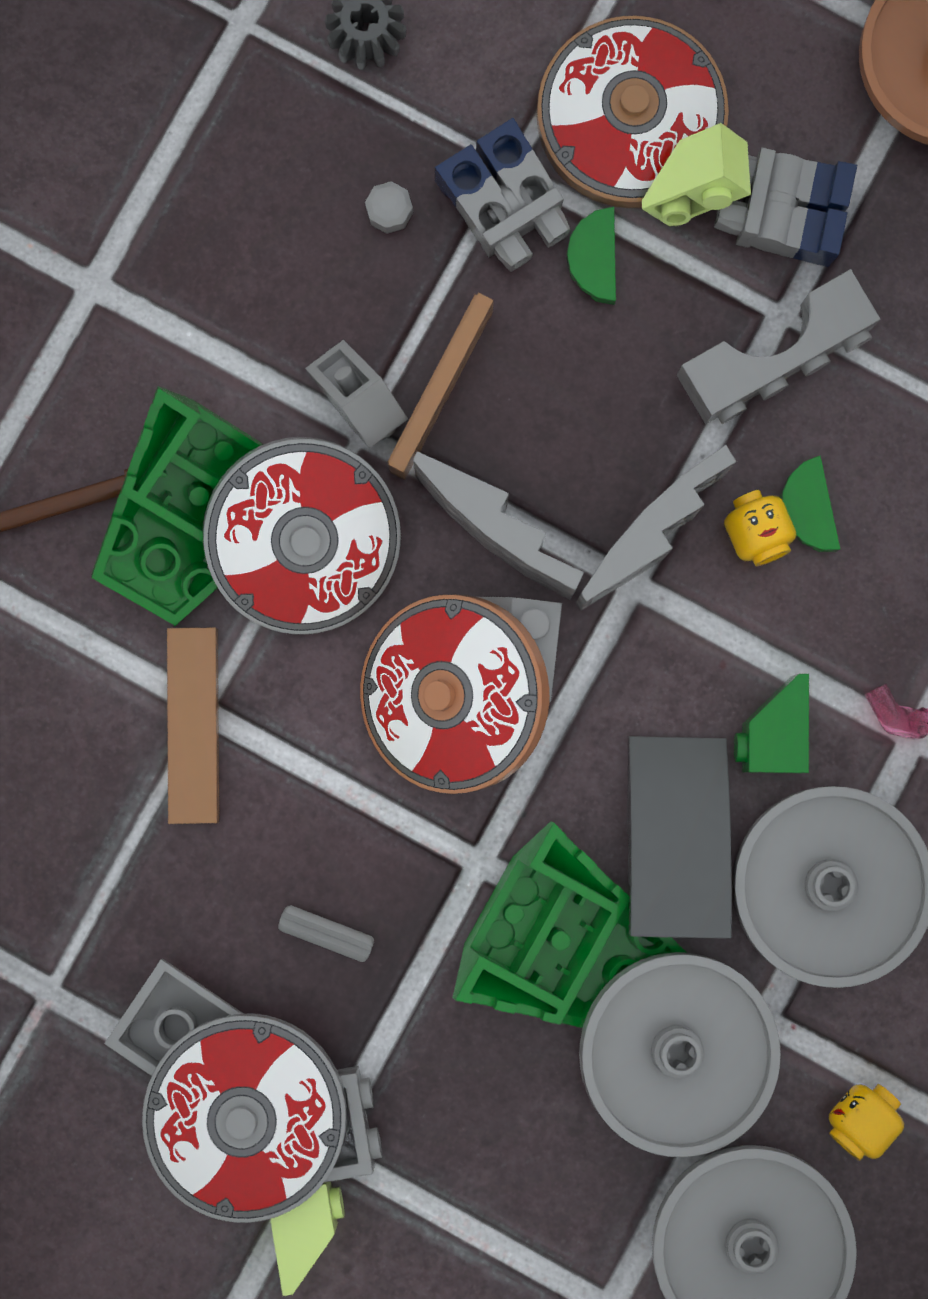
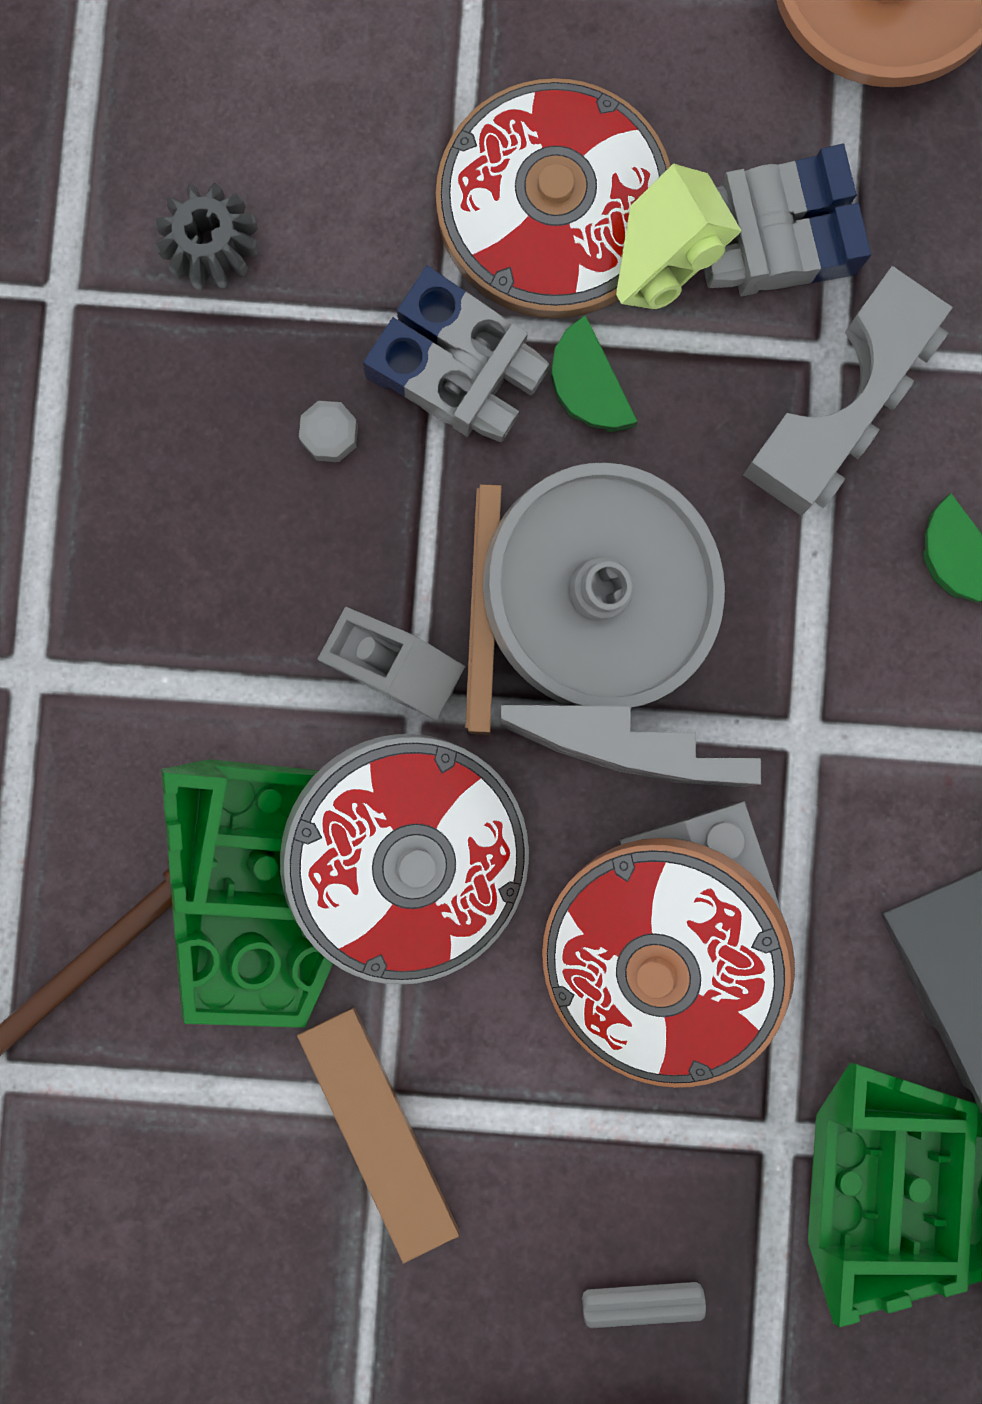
camera: 25 degrees left, 0 degrees up
(534, 405) = (604, 586): none -> light grey dish
(645, 539) = (802, 685): light grey slope -> none
(760, 528) = (924, 608): yellow head -> none

